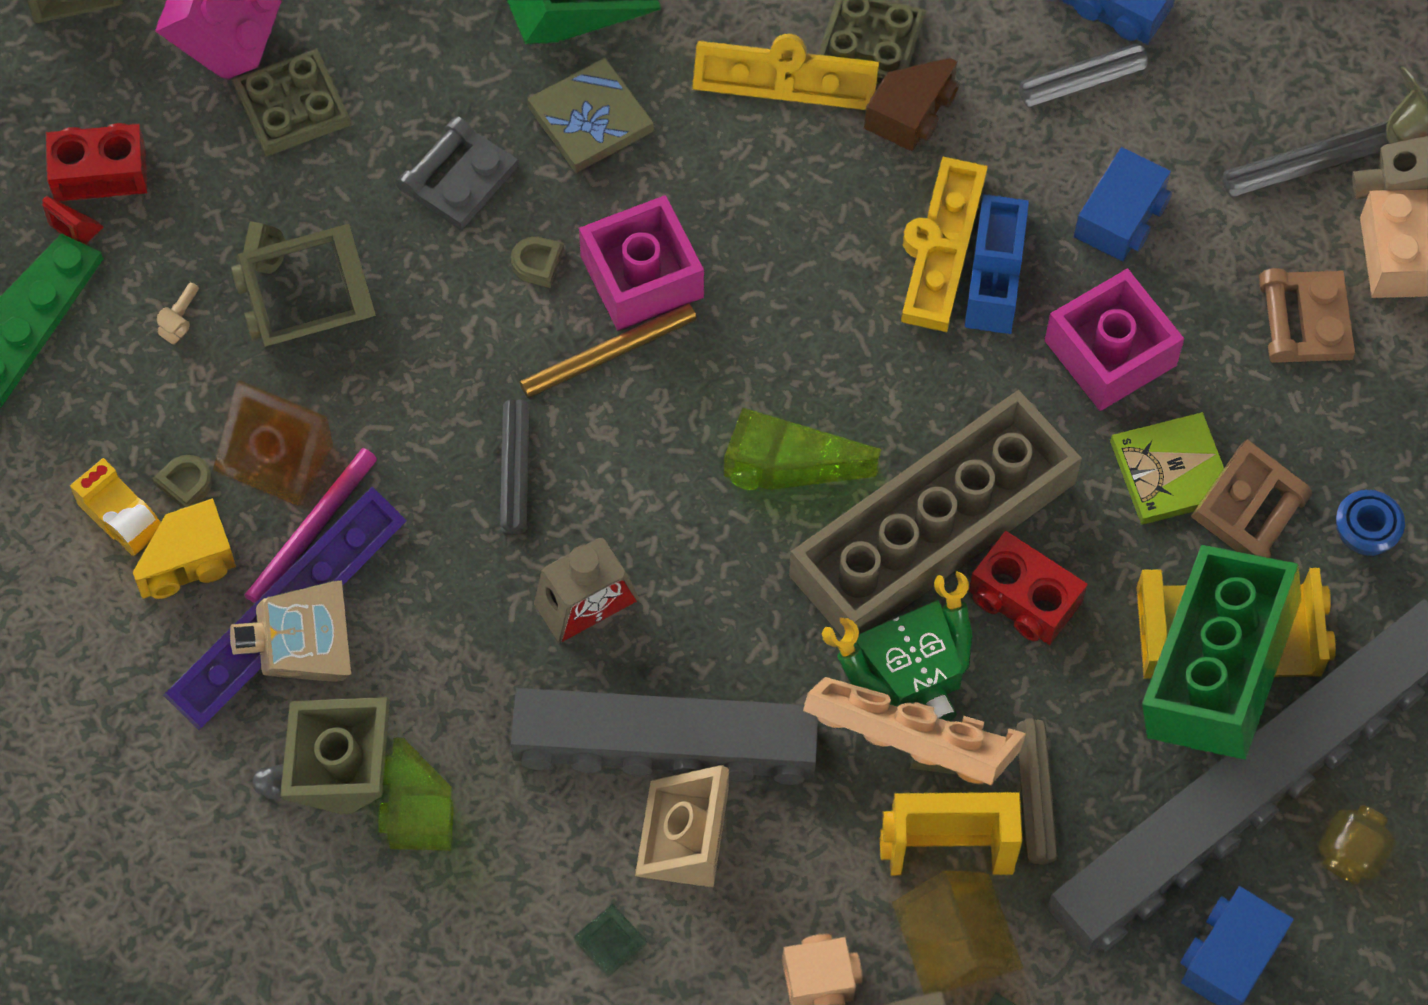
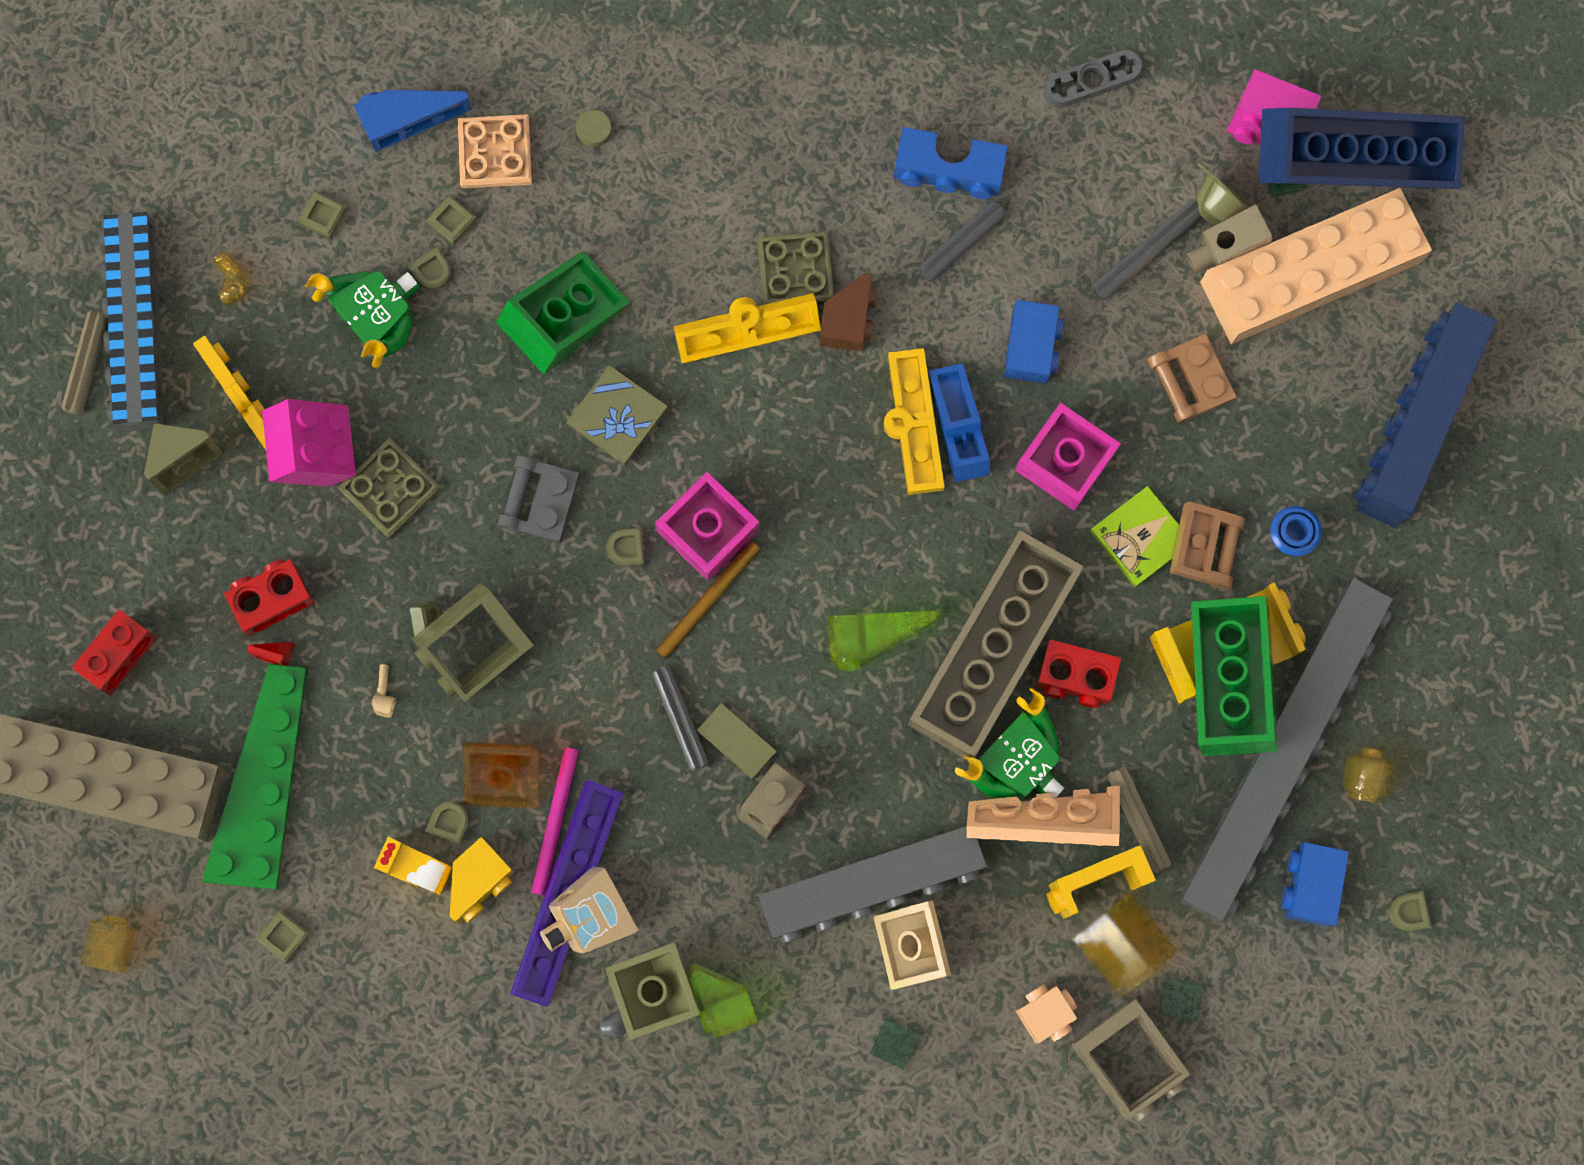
camera: 25 degrees left, 15 degrees up
(568, 510) = (736, 741): none -> olive tile

